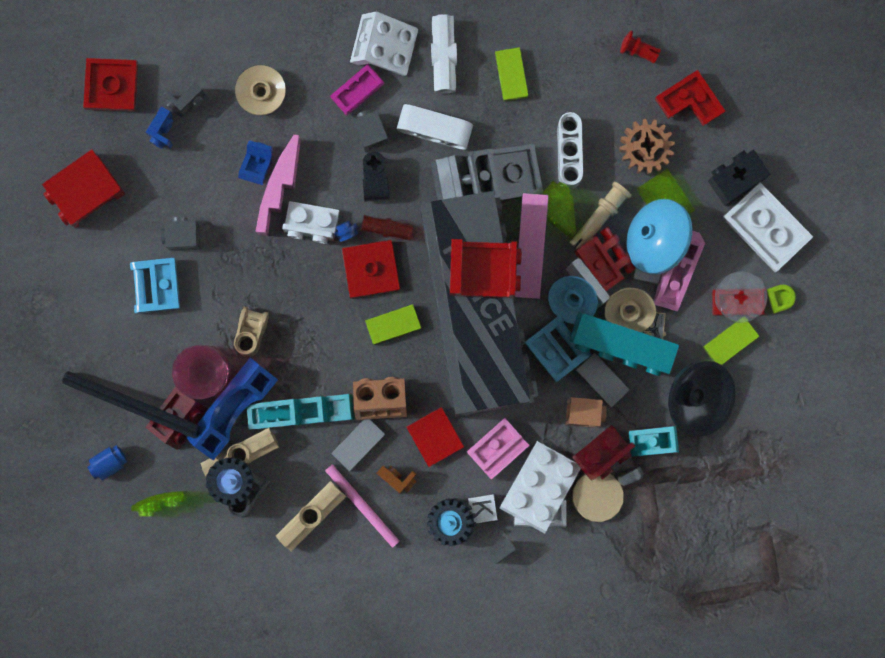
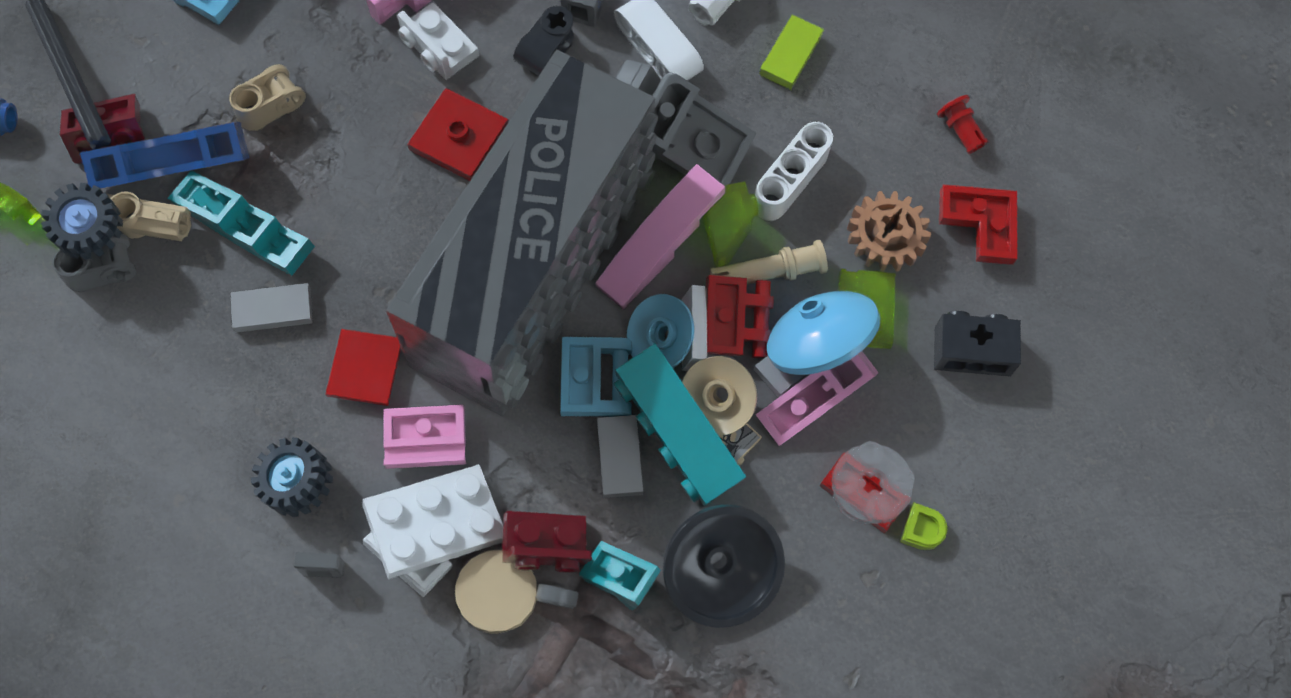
camera: 35 degrees right, 15 degrees down
(186, 371) = (170, 89): clear pink wheel -> none
(298, 528) = (119, 343): tan piece -> none
(346, 231) = (466, 73): blue plate -> none
(360, 503) = (211, 383): bright pink bar -> none
(379, 405) = (338, 271): nougat brick -> none
(387, 227) = (504, 92): clear red pin -> none
(392, 477) = (273, 378): dark orange bracket -> none
(393, 324) = (420, 206): lime tile -> none
(483, 508) = (345, 495): white tile -> none
(484, 269) = (563, 165): red panel -> none
(585, 412) = (561, 468): nougat brick -> none
(730, 342) = (817, 532): lime tile -> none
(767, 227) = (970, 430): white plate -> none

